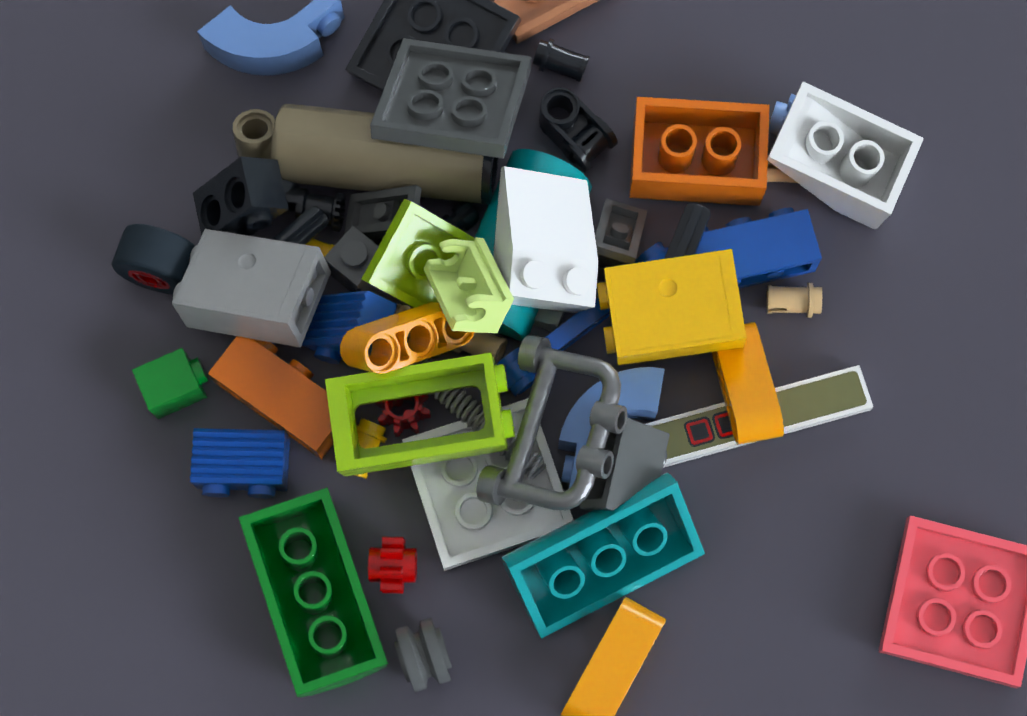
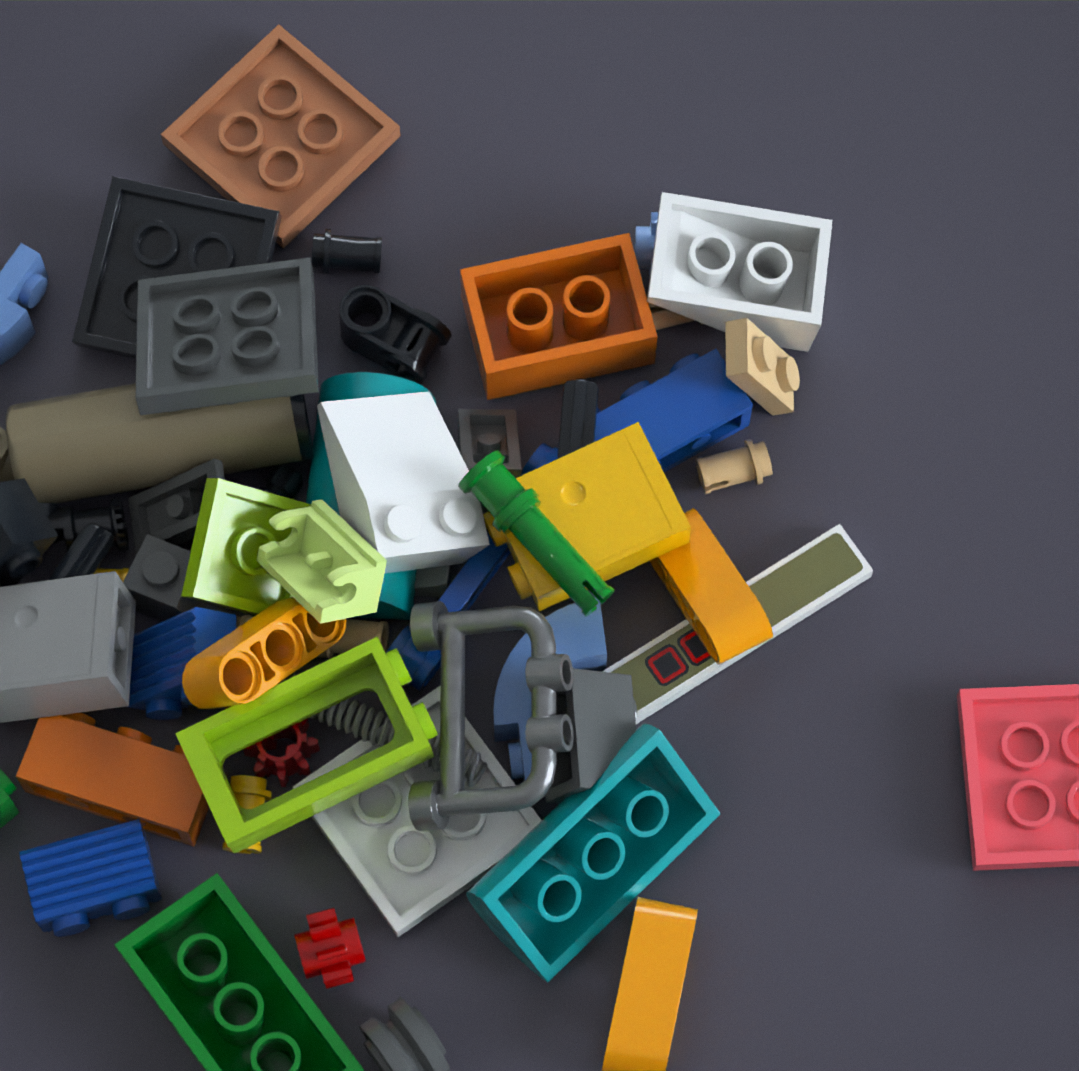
camera: 20 degrees left, 5 degrees down
(621, 289) = (518, 513): none -> green pin
(836, 232) = (760, 367): none -> tan plate

